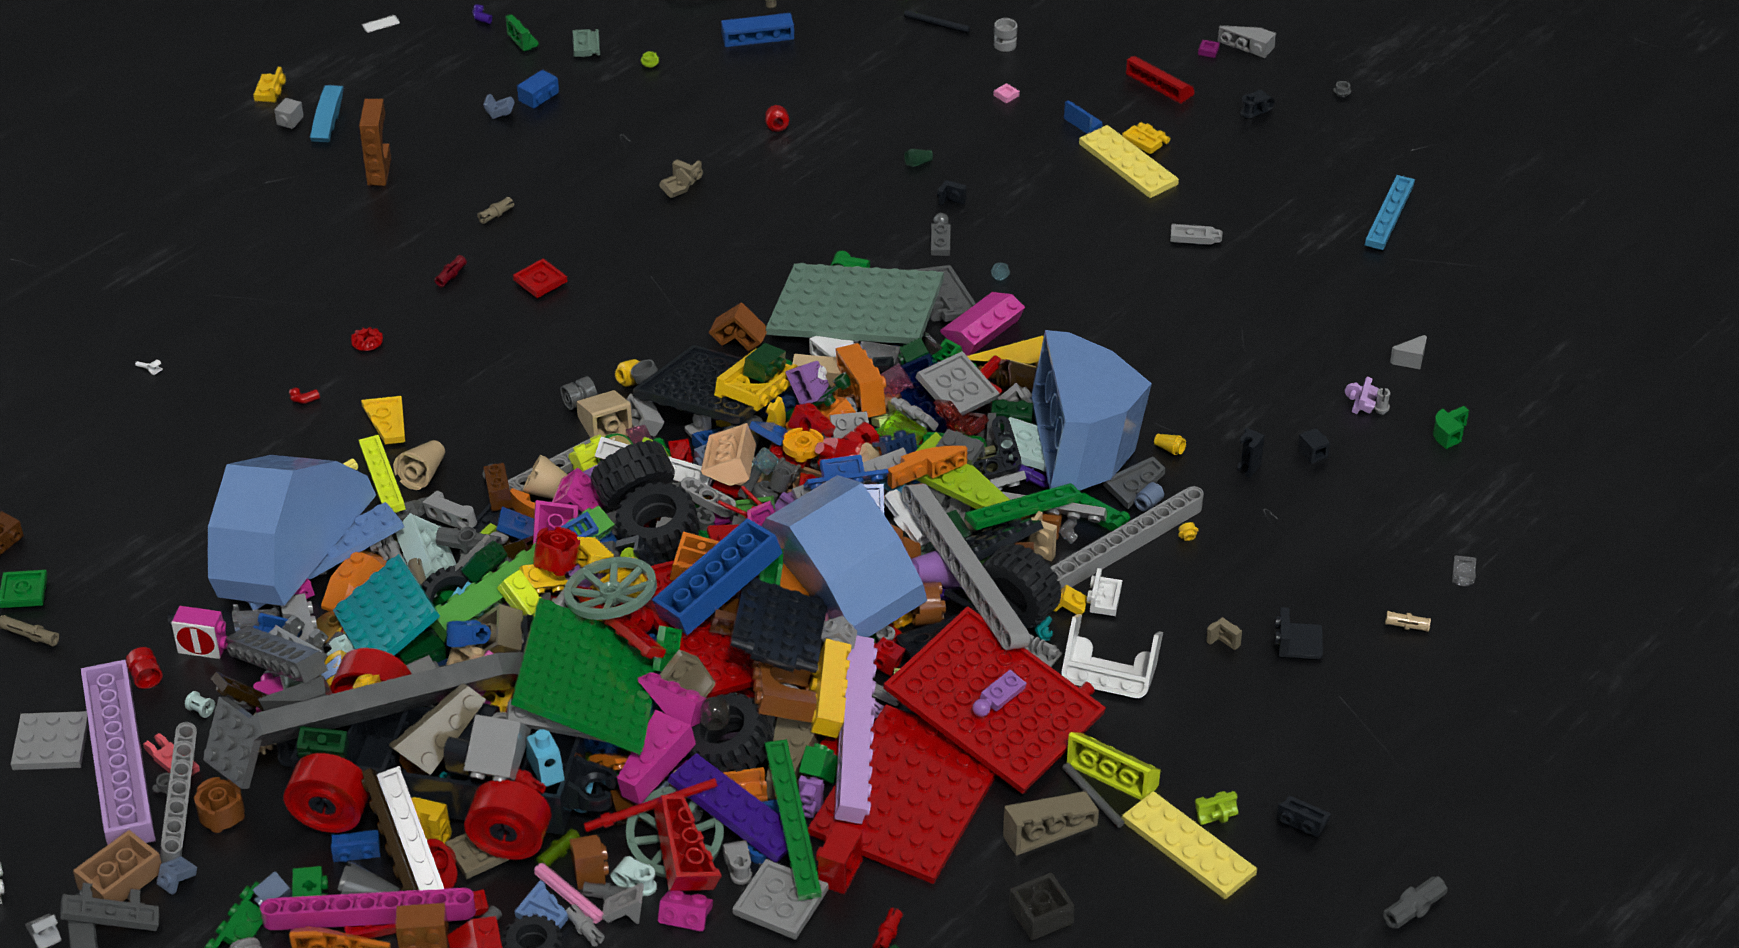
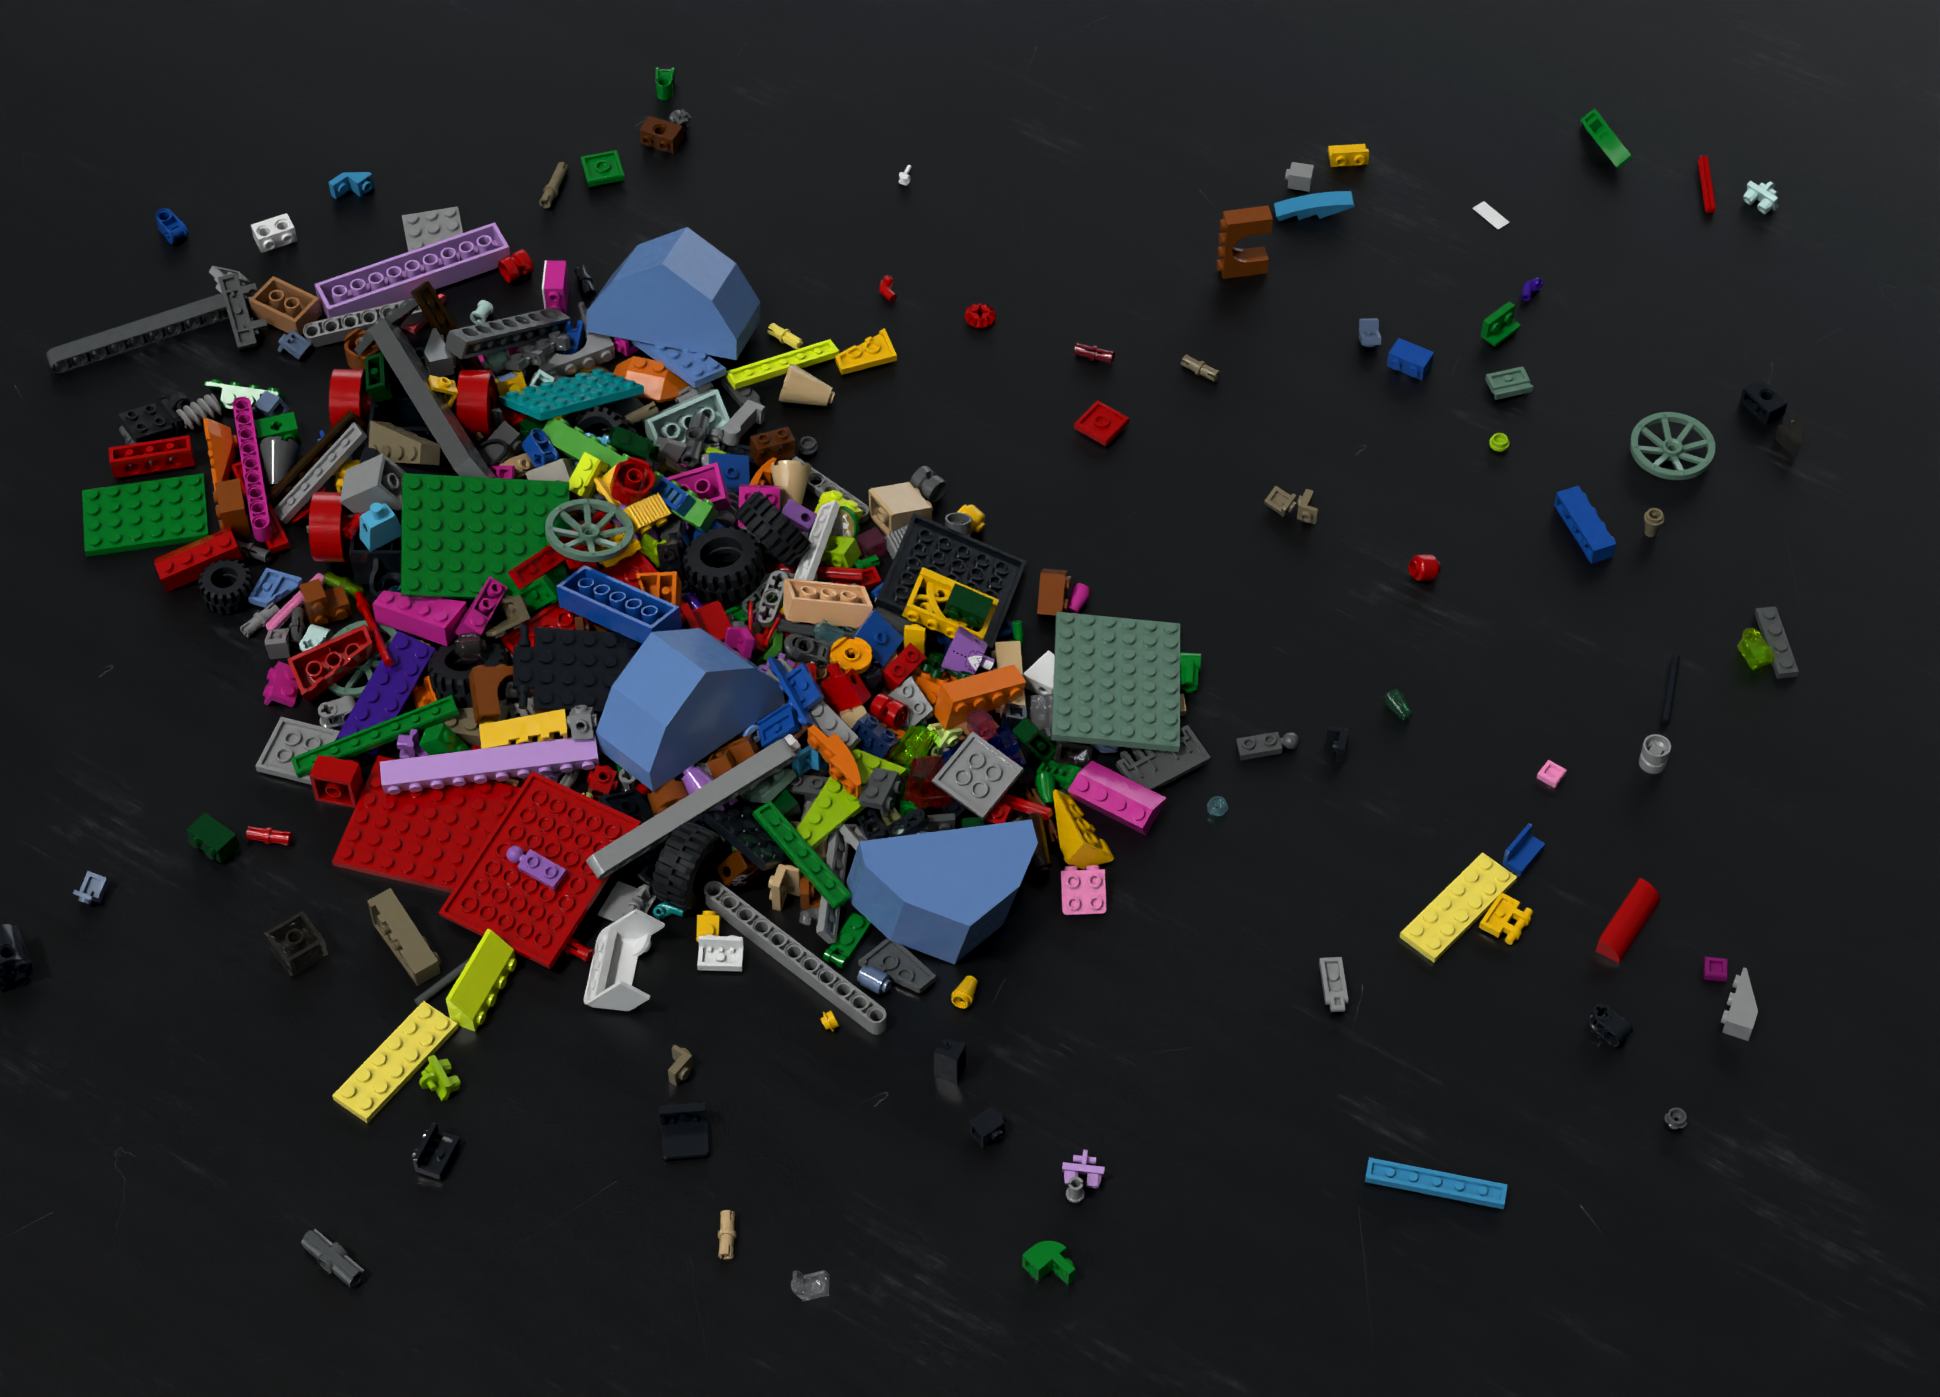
camera: 80 degrees right, 10 degrees up
(914, 413) = (940, 745): light grey plate -> none
(1409, 353) = (1172, 1219): light grey slope -> none

